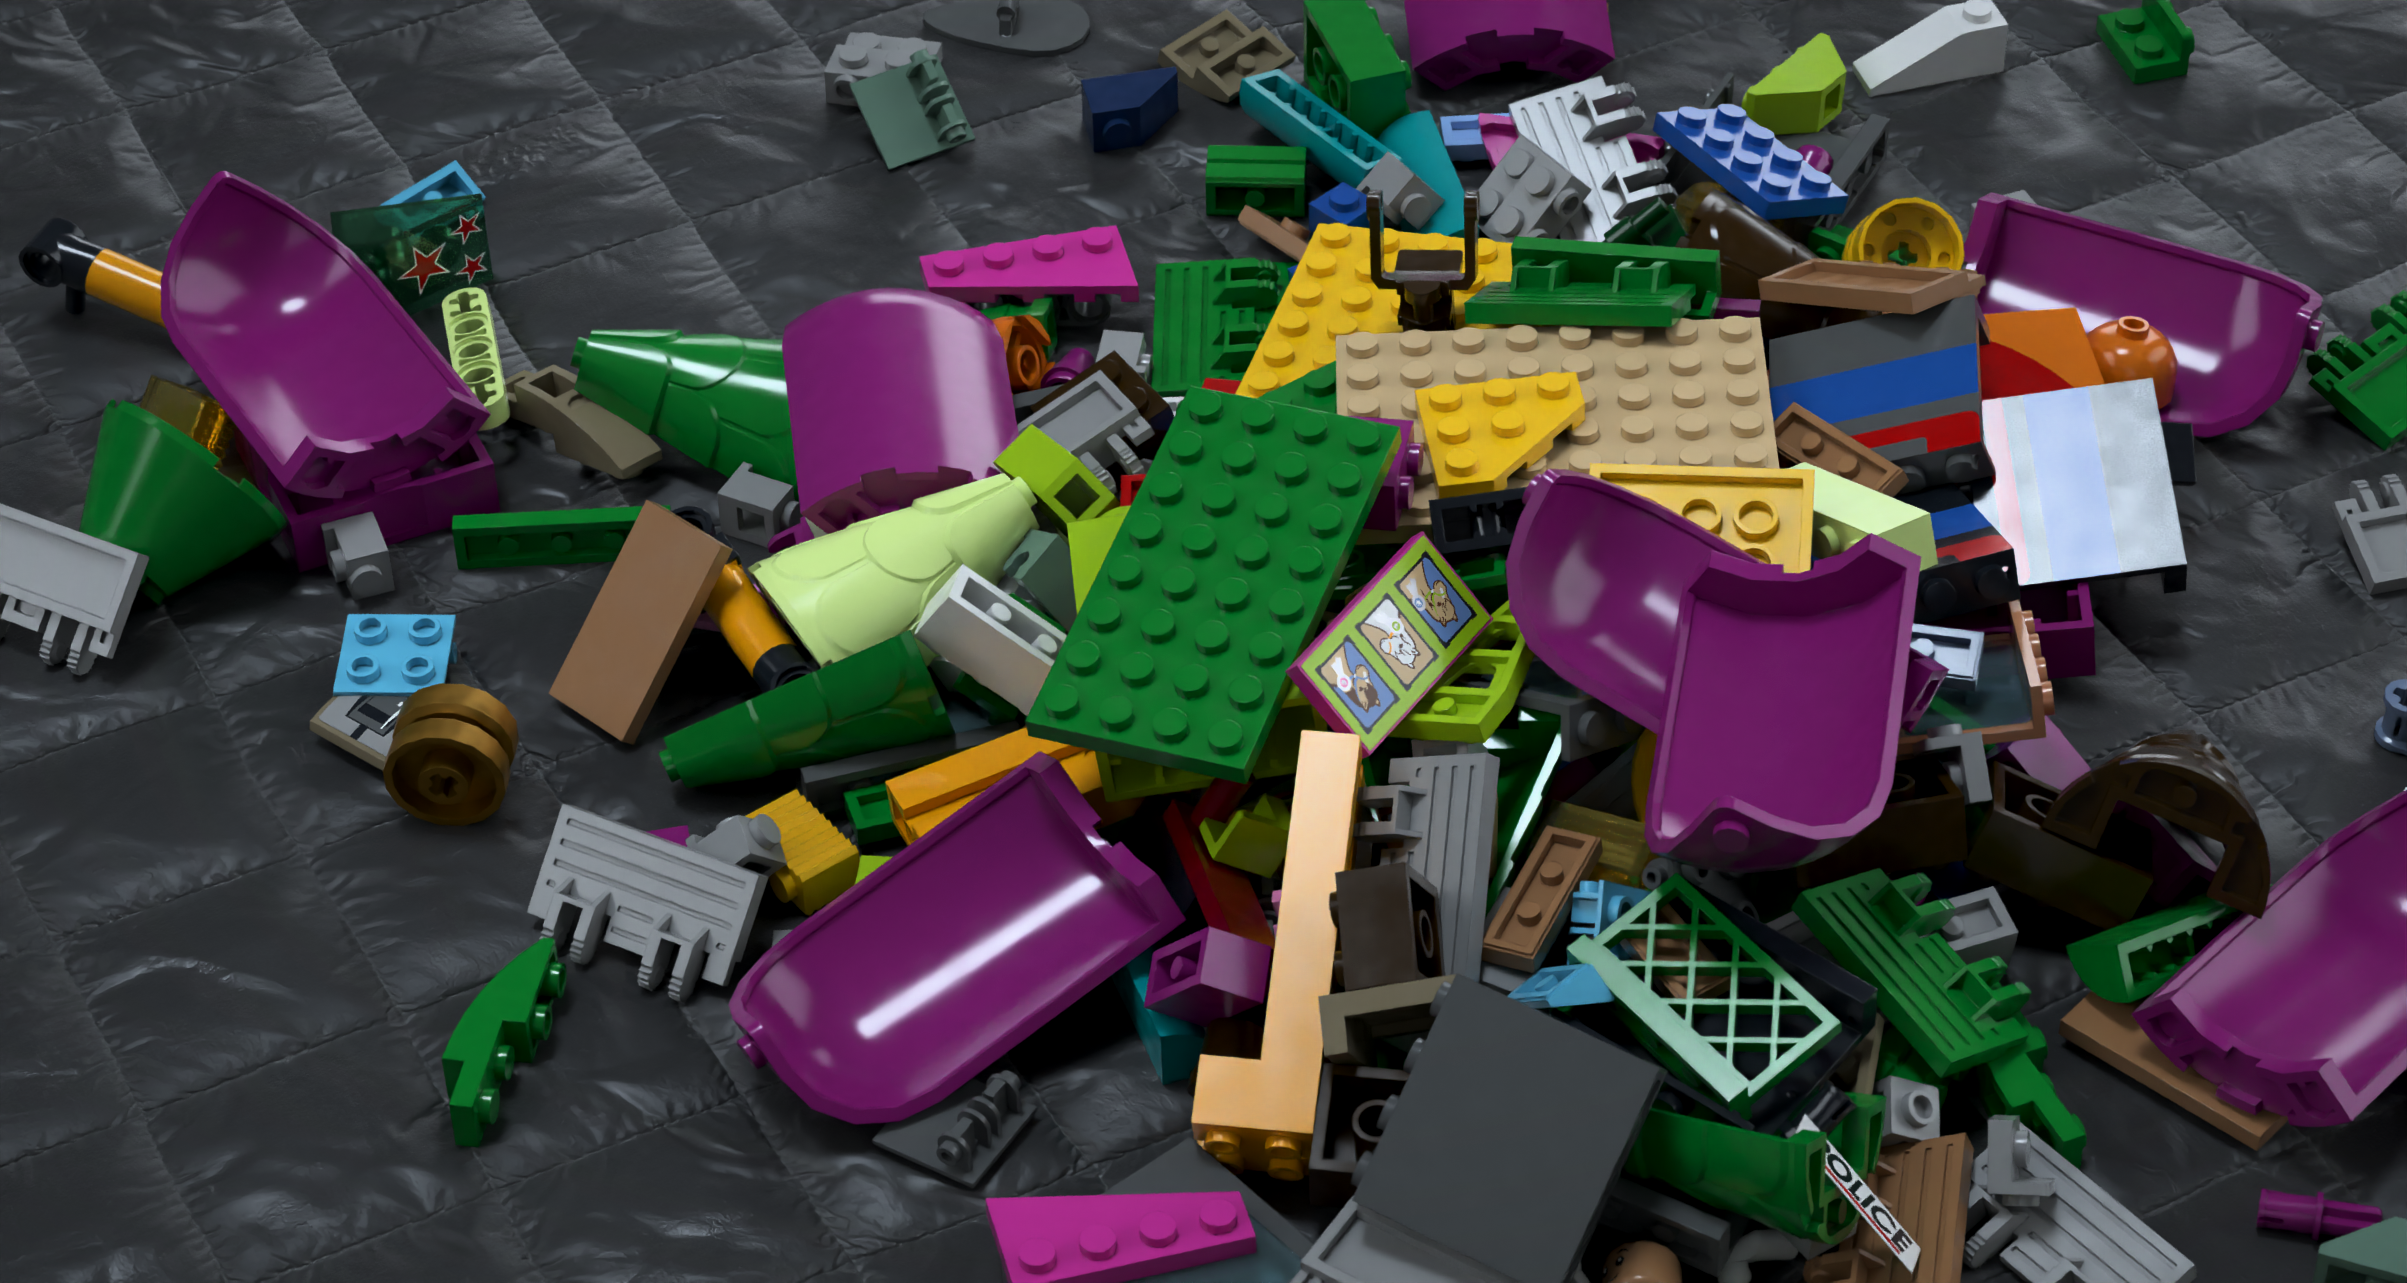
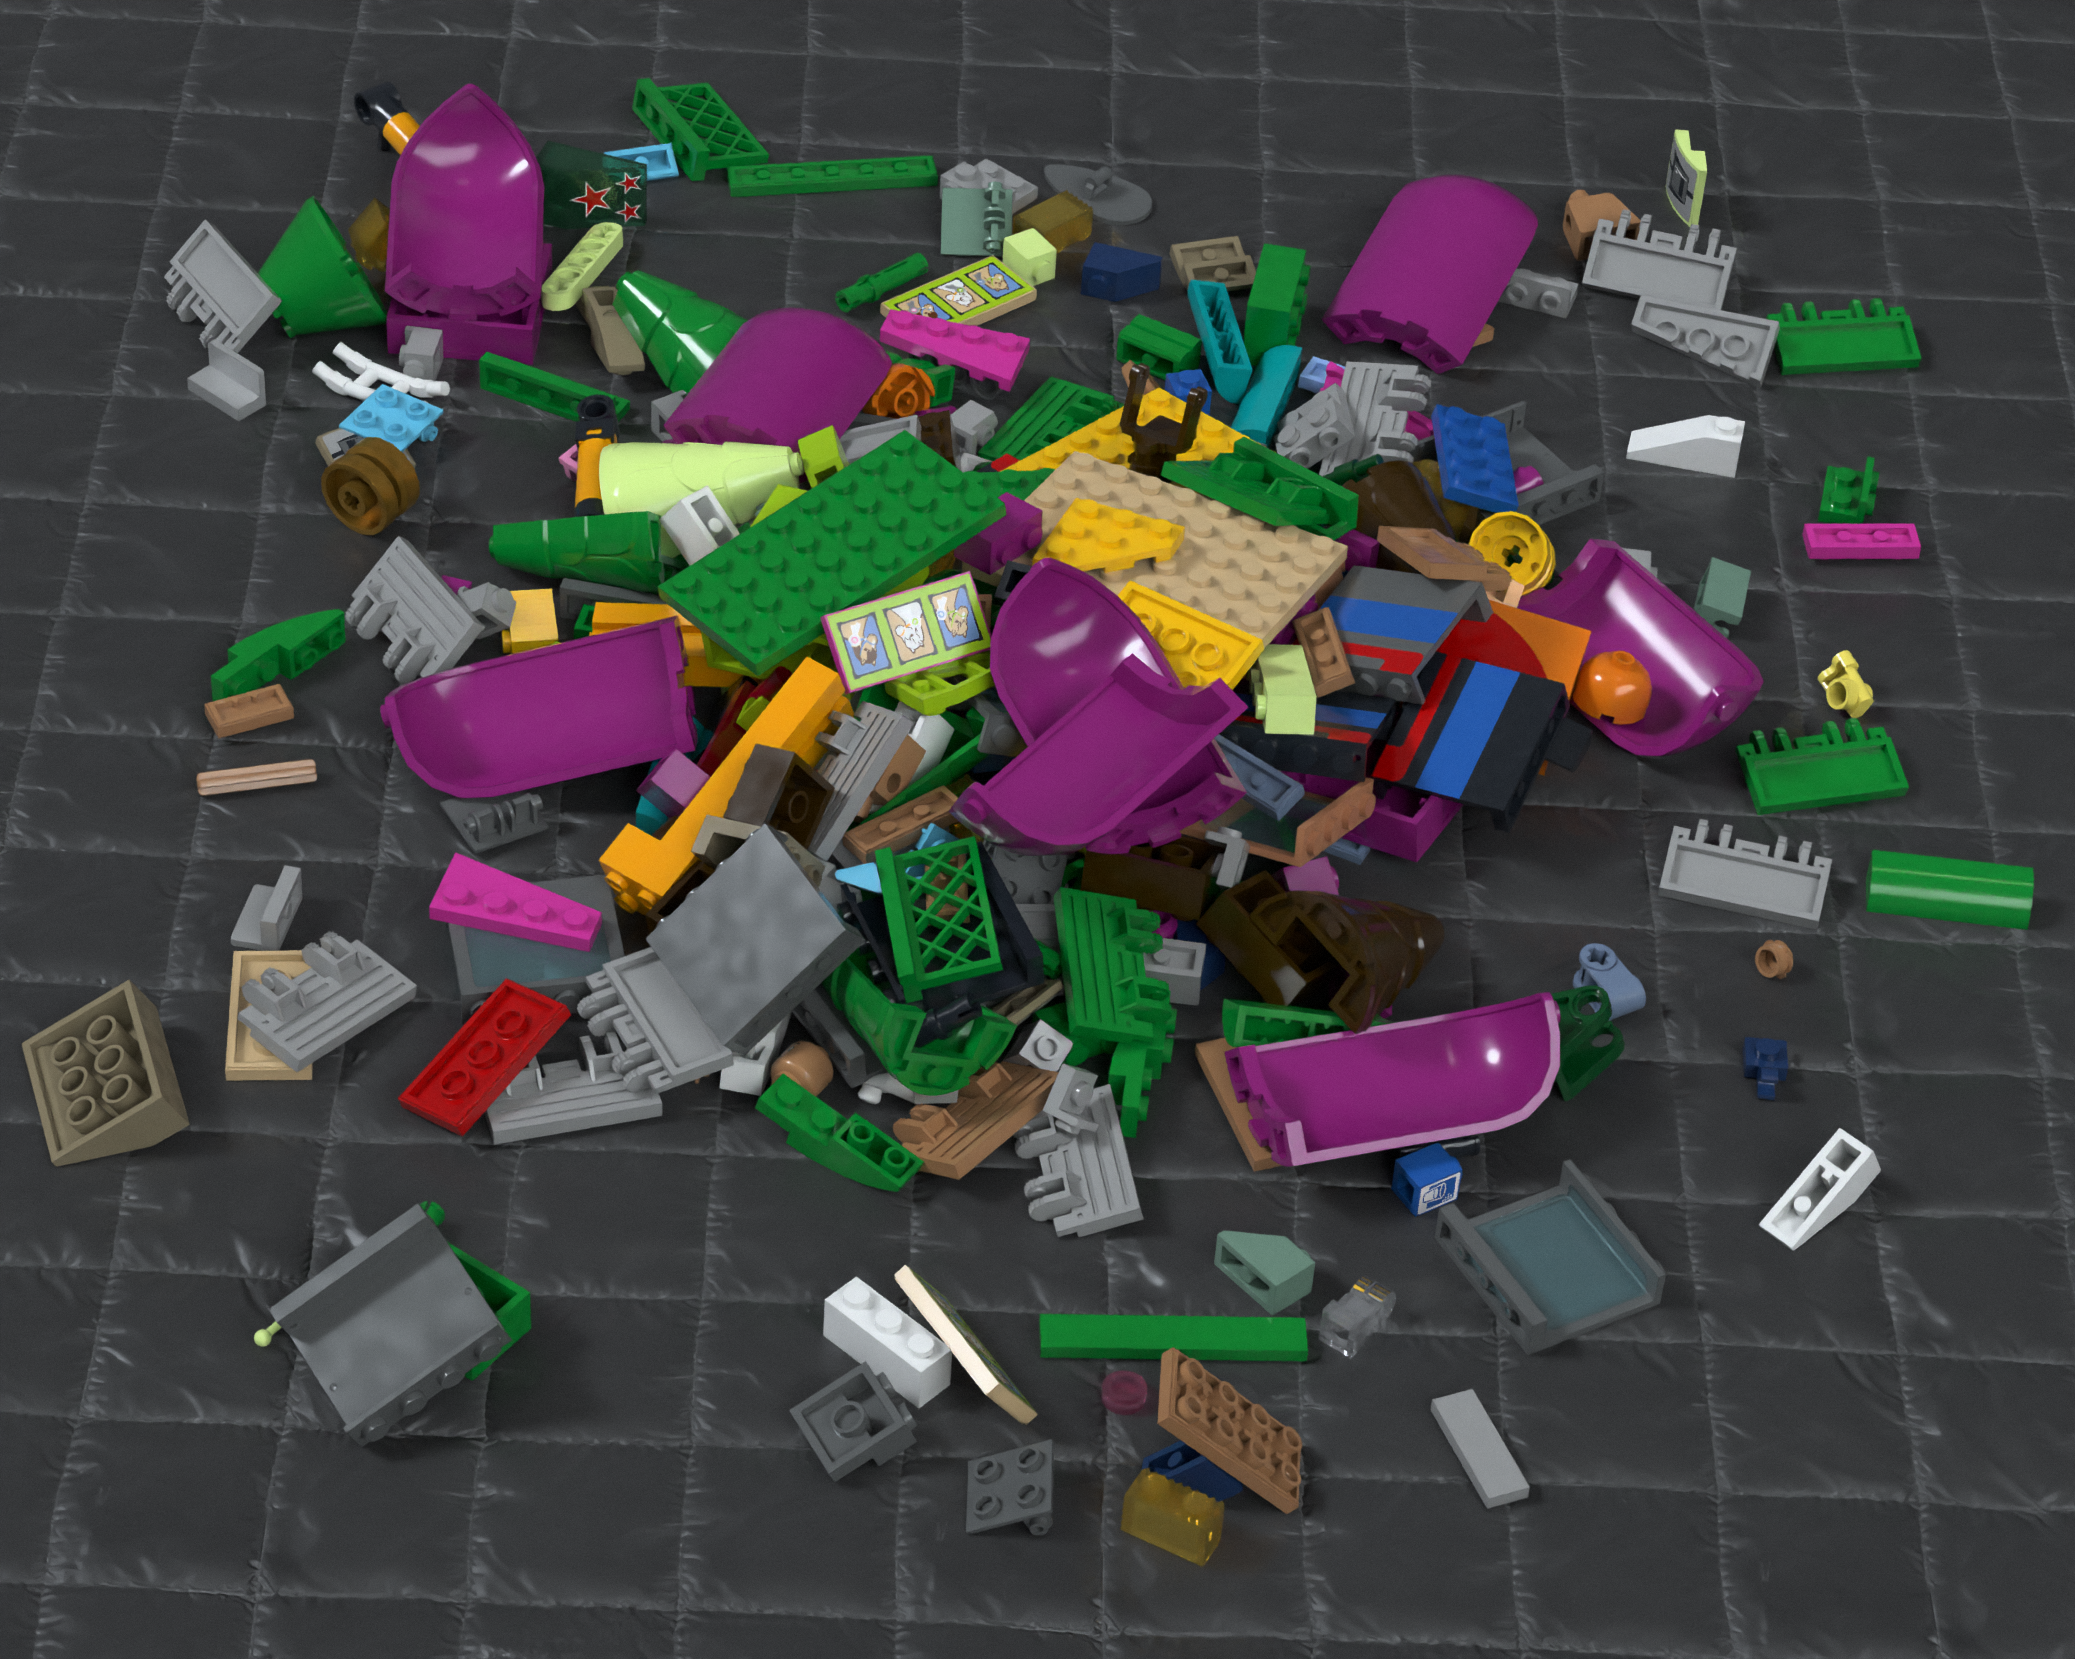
camera: 25 degrees right, 0 degrees up
(132, 696) = (230, 382): none -> light grey panel
(307, 607) = (369, 373): none -> white piece
(438, 138) = (690, 151): none -> green fence
(521, 1130) = (249, 711): none -> medium nougat plate
(603, 1217) = (256, 777): none -> medium nougat axle
(640, 622) = (533, 454): medium nougat tile -> none
(676, 126) = (832, 176): none -> green tile
(848, 242) = (870, 288): none -> green pin
(966, 206) = (967, 295): none -> tile
(1003, 80) = (1058, 219): none -> clear yellow brick
(1009, 131) = (1030, 256): none -> yellowish green brick
(1403, 192) = (1234, 390): light grey brick -> none
(1800, 92) = (1564, 434): lime slope -> none
(1867, 1203) = (948, 1069): white sticker -> none
(2129, 202) = (1722, 593): none -> sand green hinge
(2210, 86) = (1861, 541): none -> dark pink plate
(2313, 1214) = (1247, 1217): magenta axle -> none
(2342, 254) = (1845, 686): none -> light yellow plate

